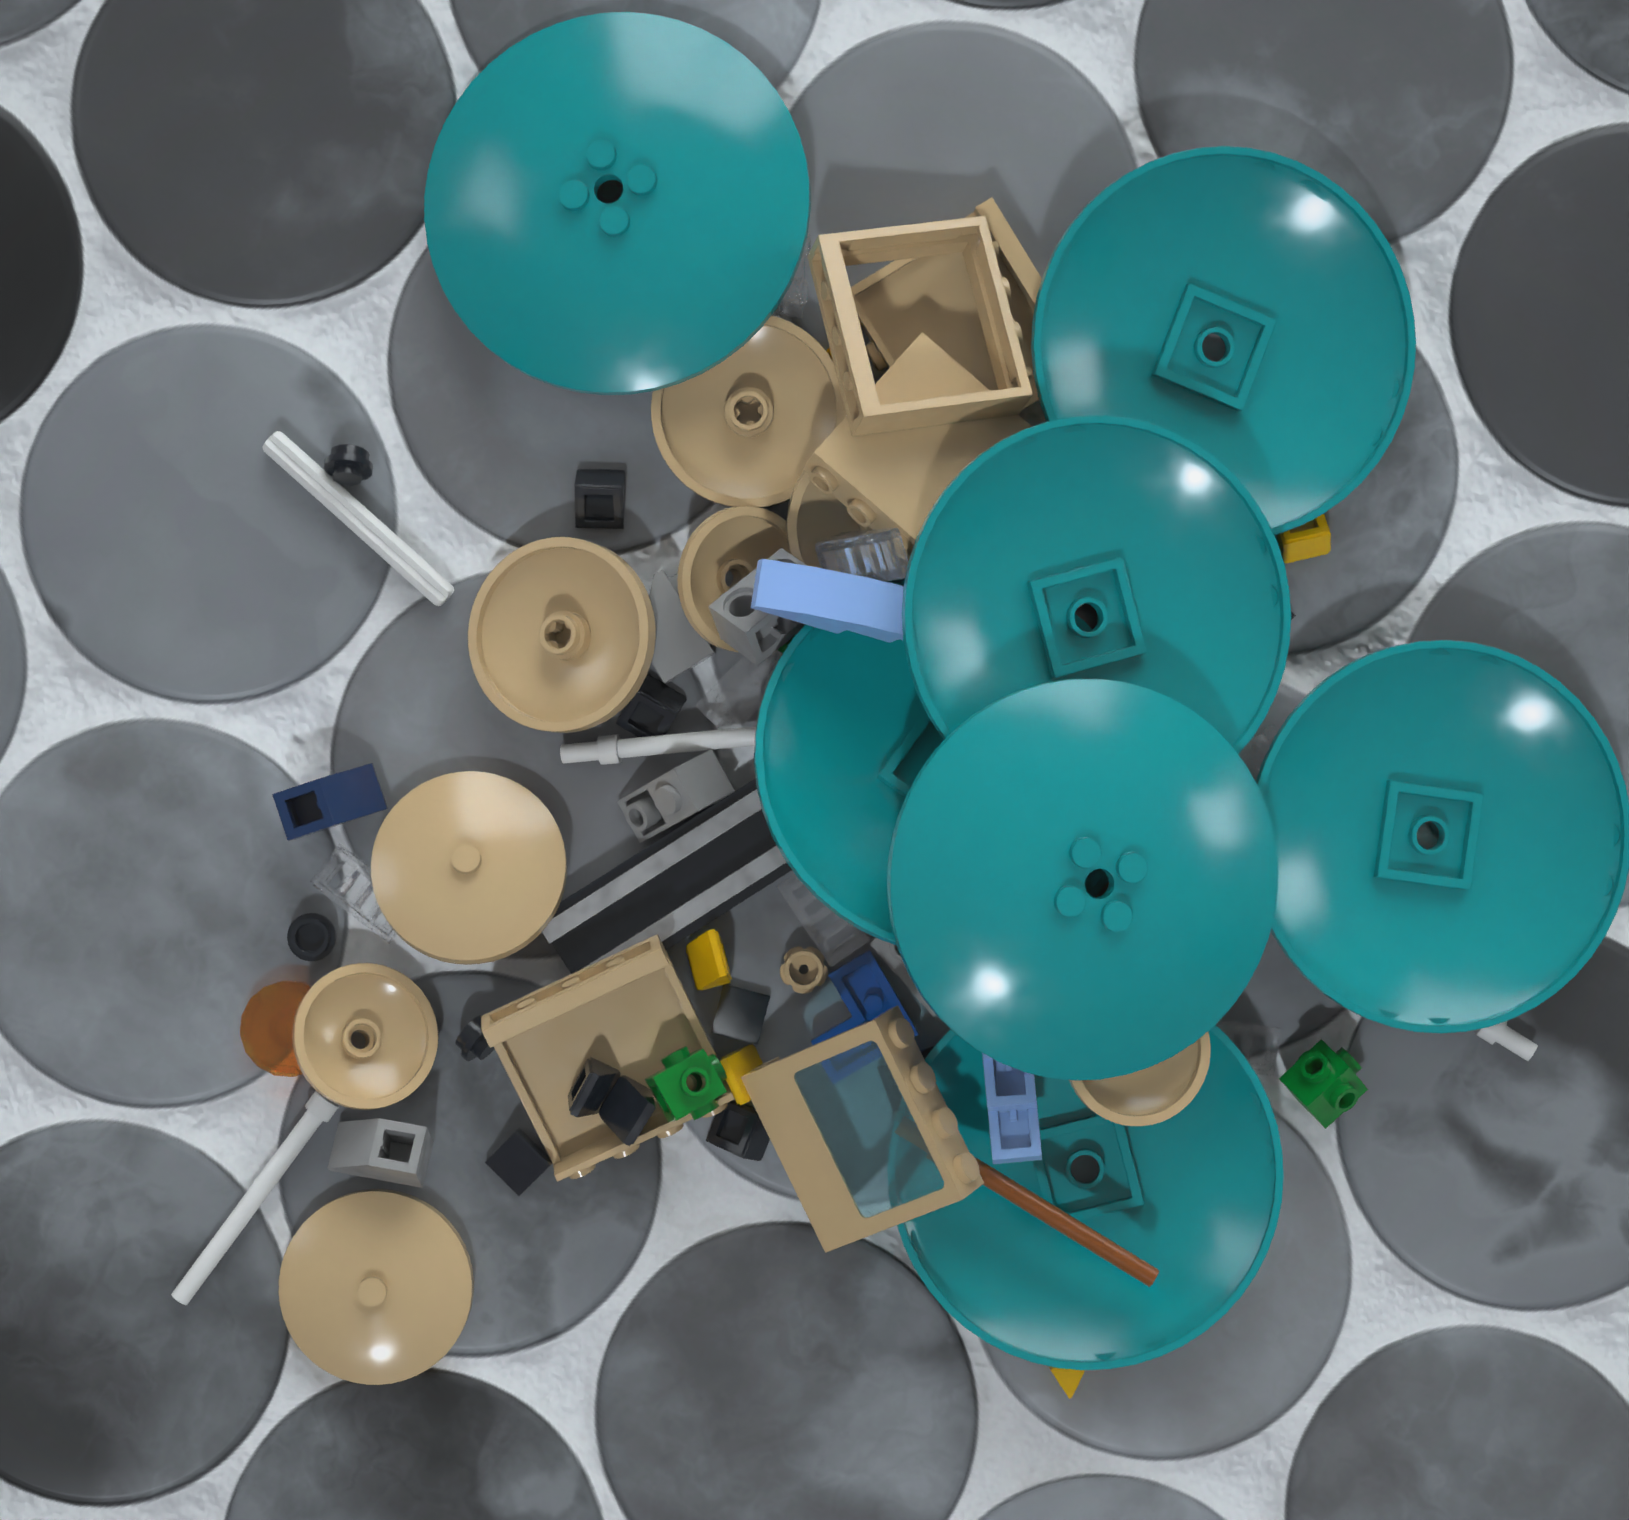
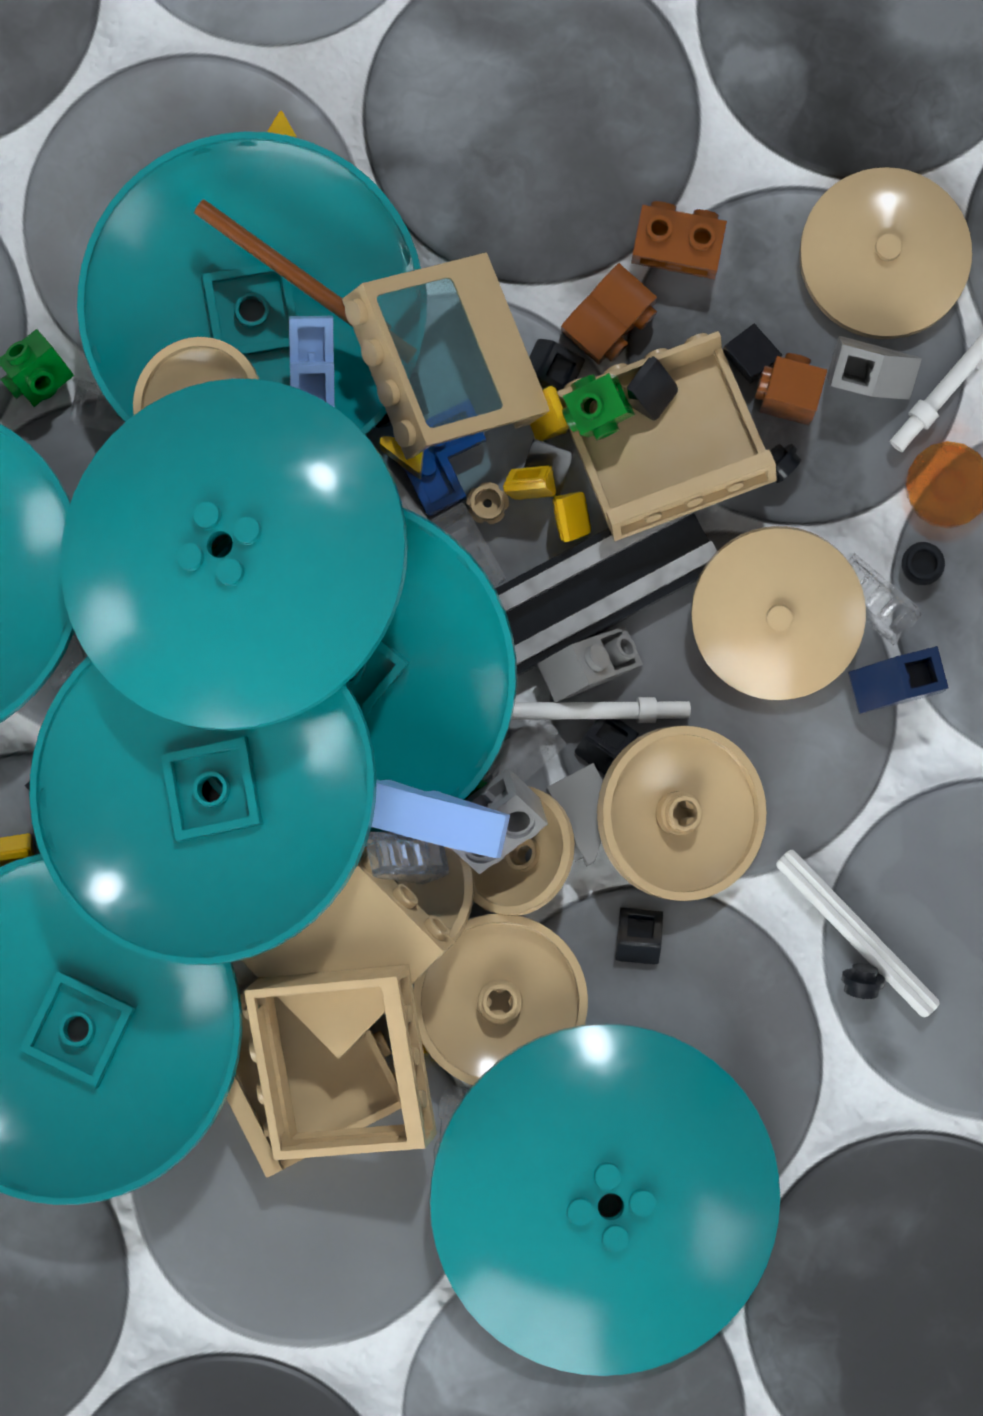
camera: 175 degrees left, 5 degrees down
(396, 1028) = (852, 474): tan dish -> none
(470, 1121) = (791, 388): none -> dark orange brick
(591, 1088) = (683, 411): black slope -> none
(609, 1283) = (679, 240): none -> dark orange brick
(681, 1192) = (610, 314): none -> dark orange brick
(757, 995) = (530, 483): none -> yellow slope
(916, 1020) = (391, 448): none -> yellow slope

